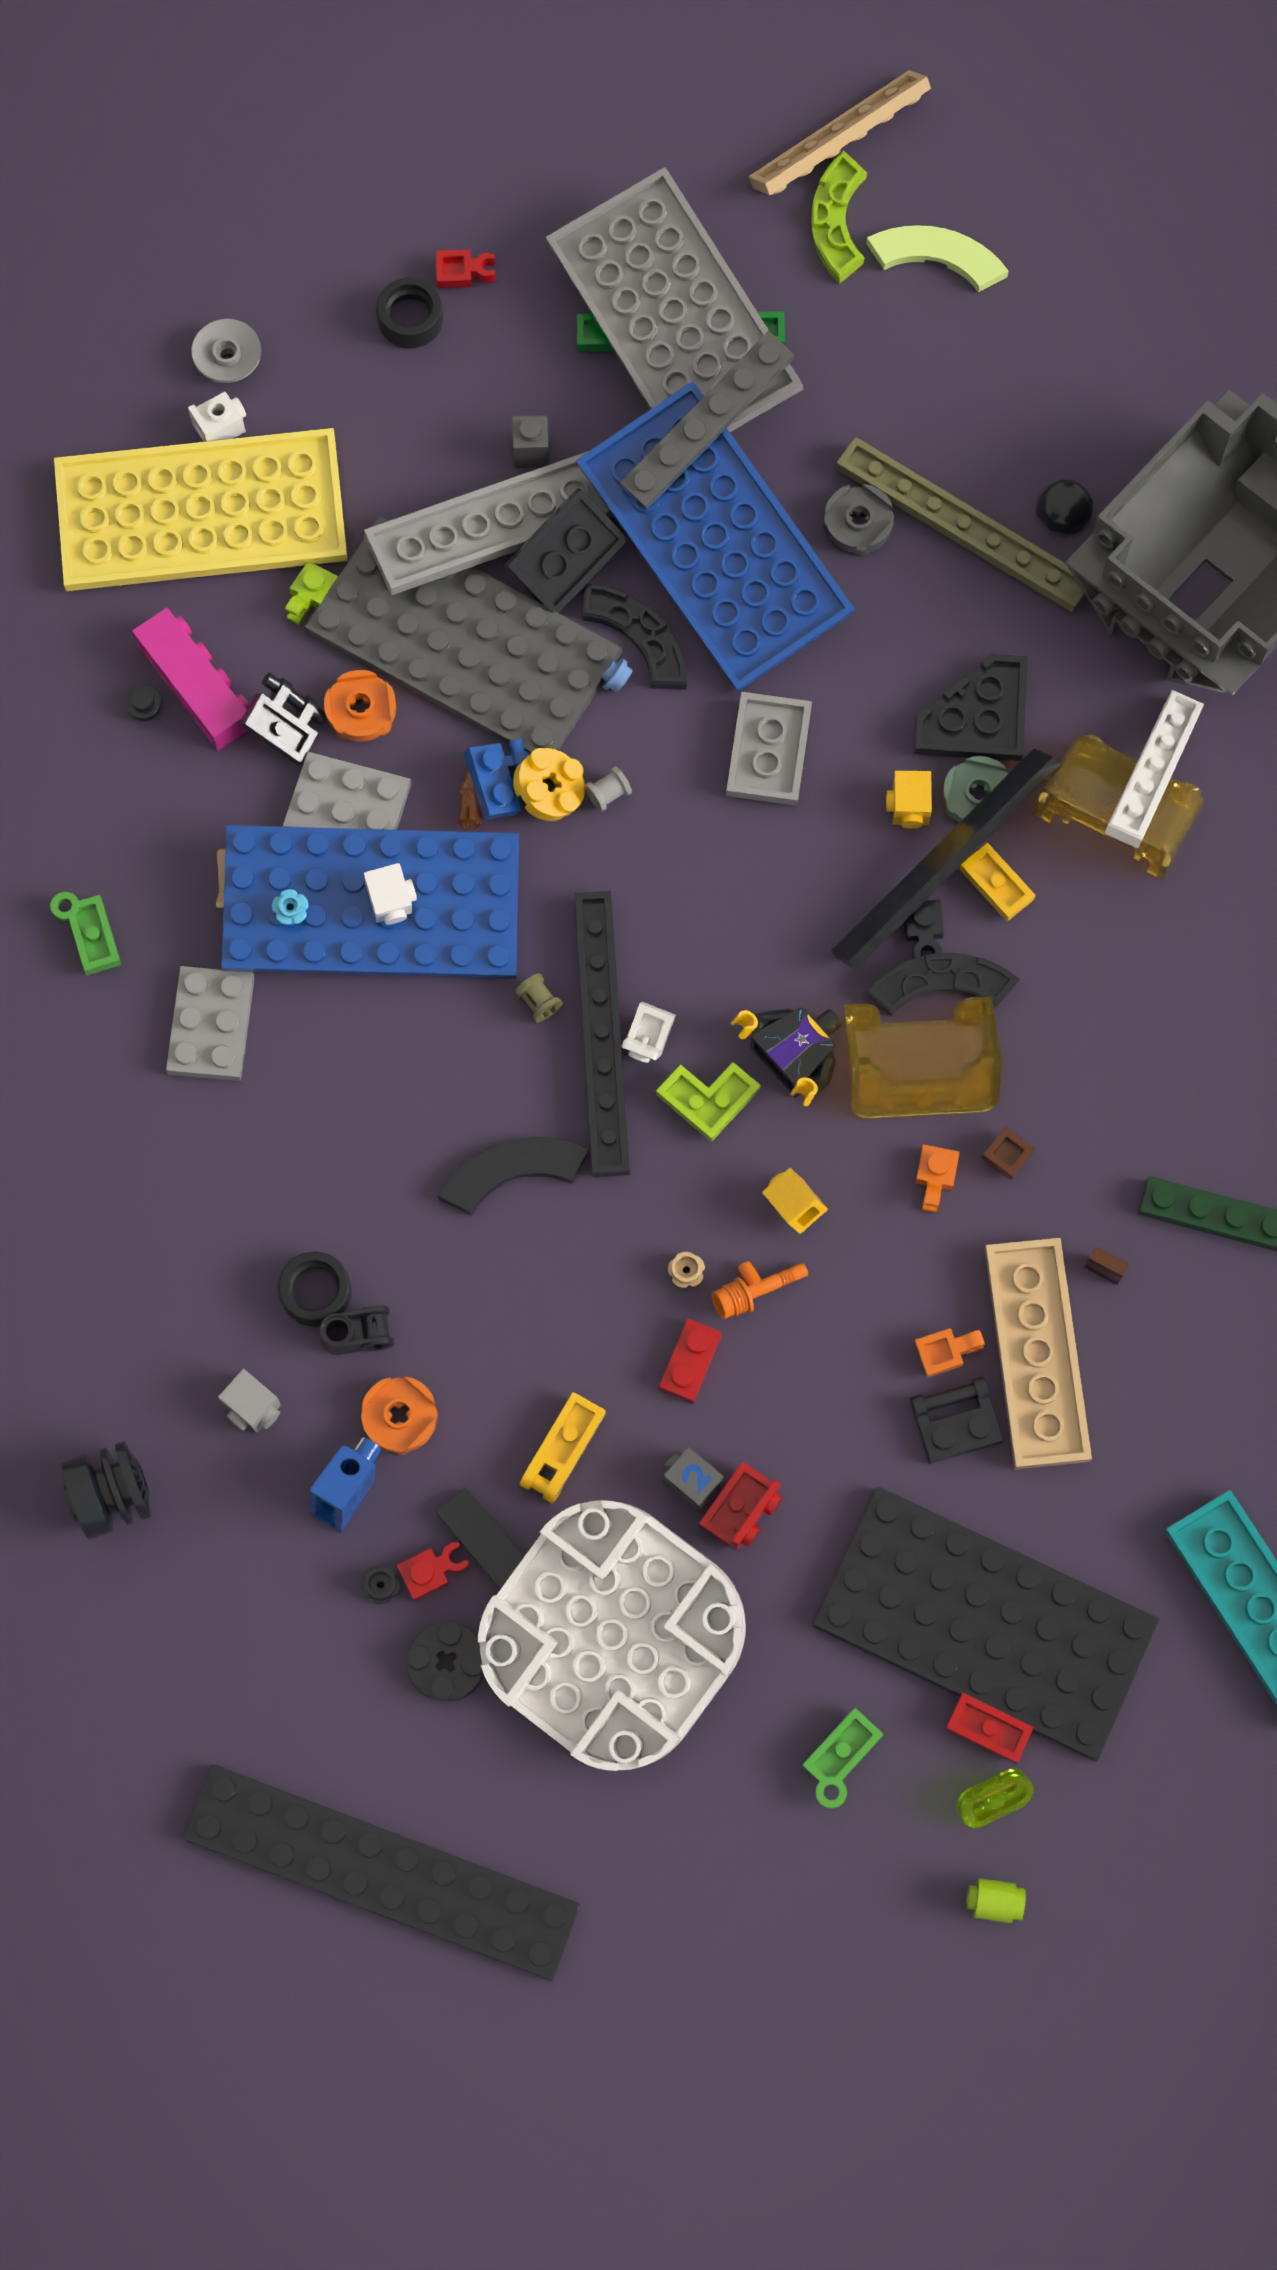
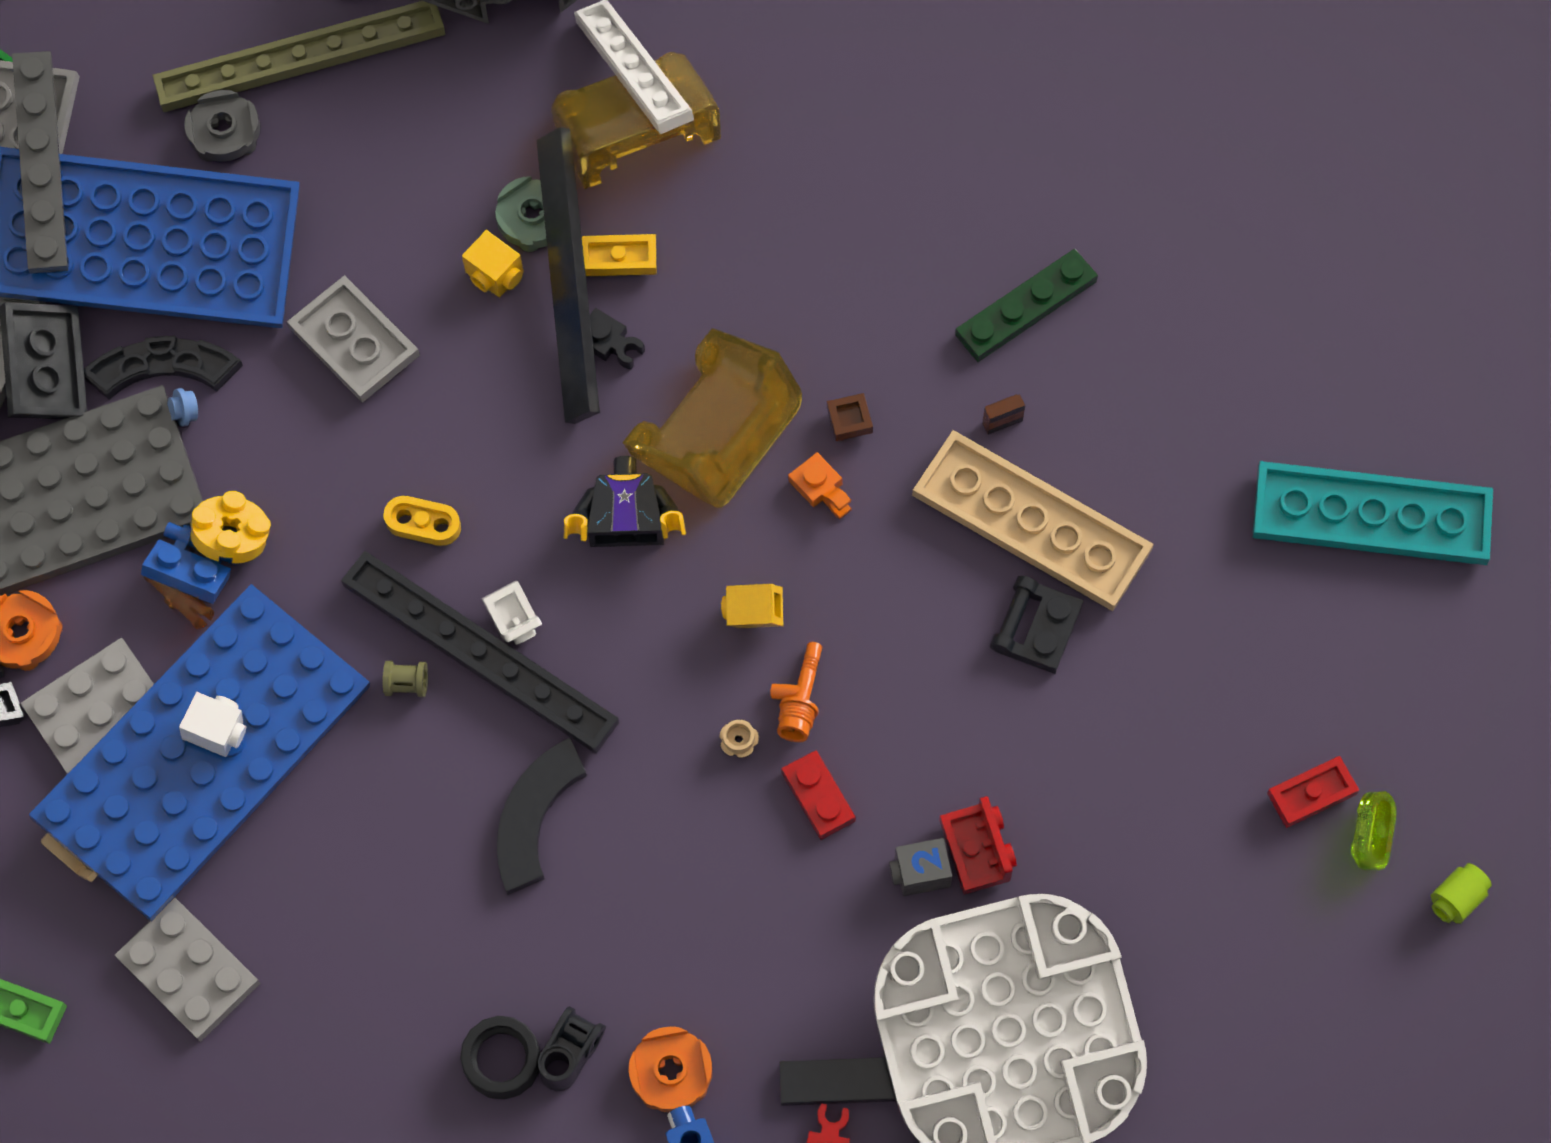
camera: 50 degrees left, 5 degrees down
(286, 916) = (151, 826): medium azure plate -> none
(563, 1446) = (809, 952): yellow plate -> none
(608, 789) = (274, 487): light grey bush -> none
(668, 914) = (424, 519): none -> yellow plate
(708, 1108) = (615, 617): lime plate -> none
(840, 1754) = (1247, 925): bright green hinge -> none
(939, 973) = (656, 353): black tile -> none
(943, 1352) = (973, 589): orange plate -> none
(978, 713) = (467, 162): black plate -> none
(986, 1622) = (1220, 730): black plate -> none

